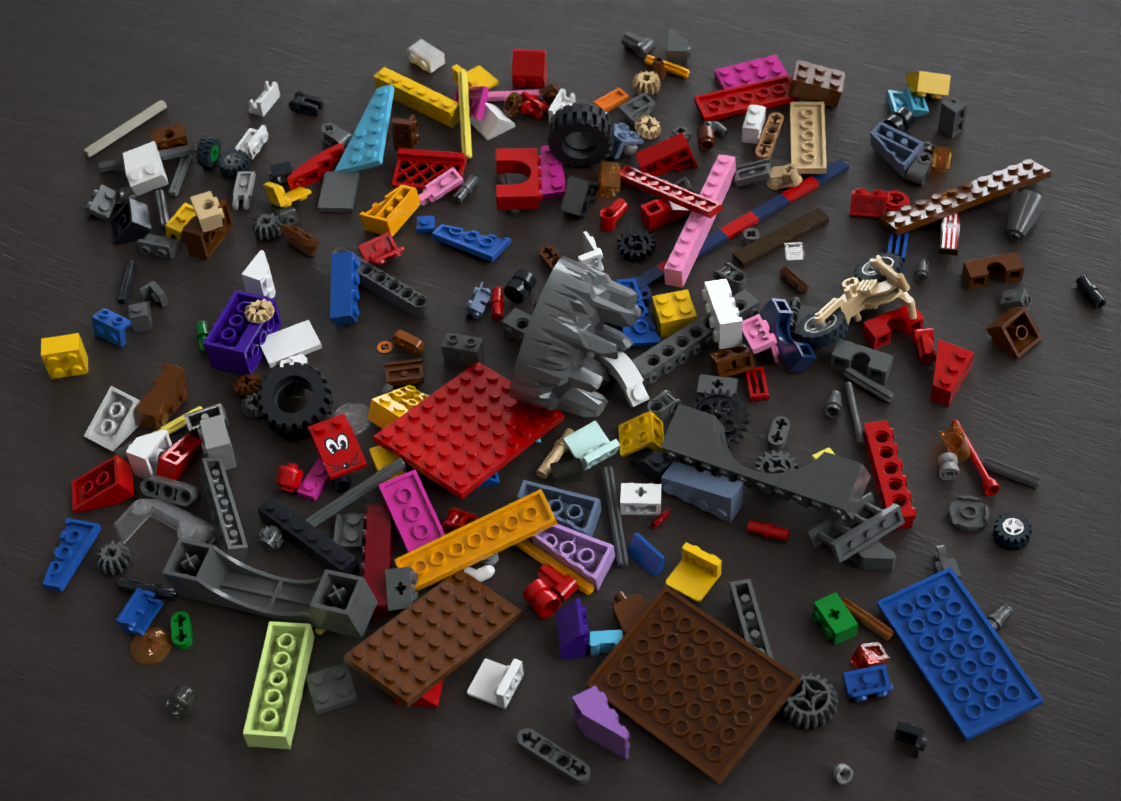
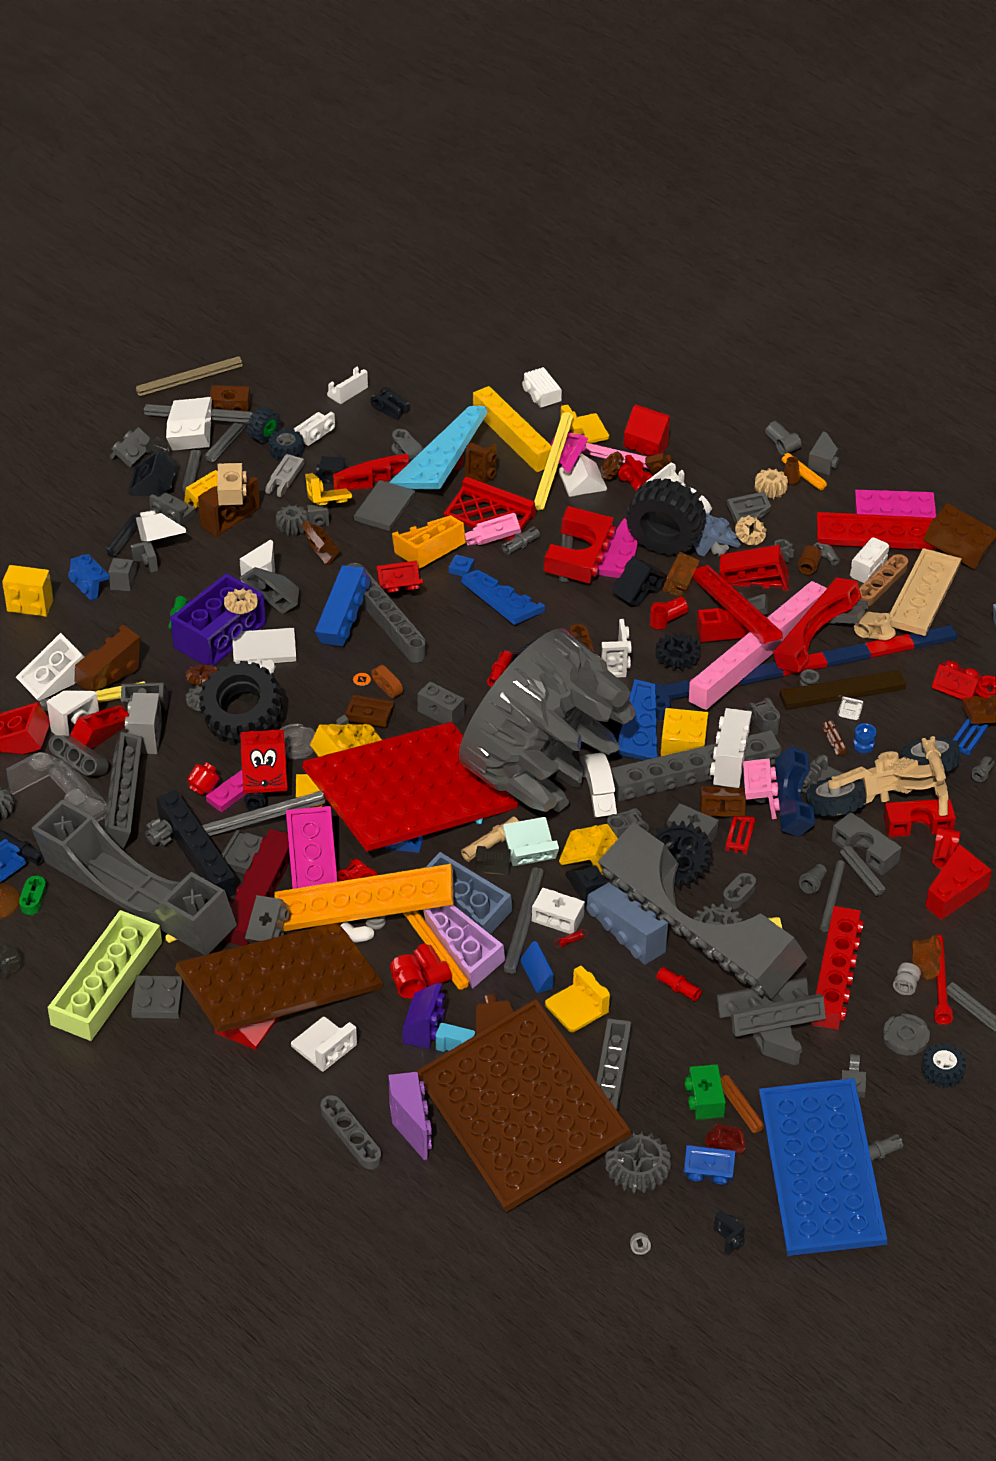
camera: 15 degrees right, 5 degrees down
(154, 266) = (157, 526): none -> white slope
(284, 291) = (275, 588): none -> dark grey slope
(474, 307) = (474, 665): sand blue hinge -> none
(612, 100) = (724, 491): orange tile -> none
(746, 164) = (836, 599): none -> red arch
(818, 272) = (864, 738): none -> blue wheel

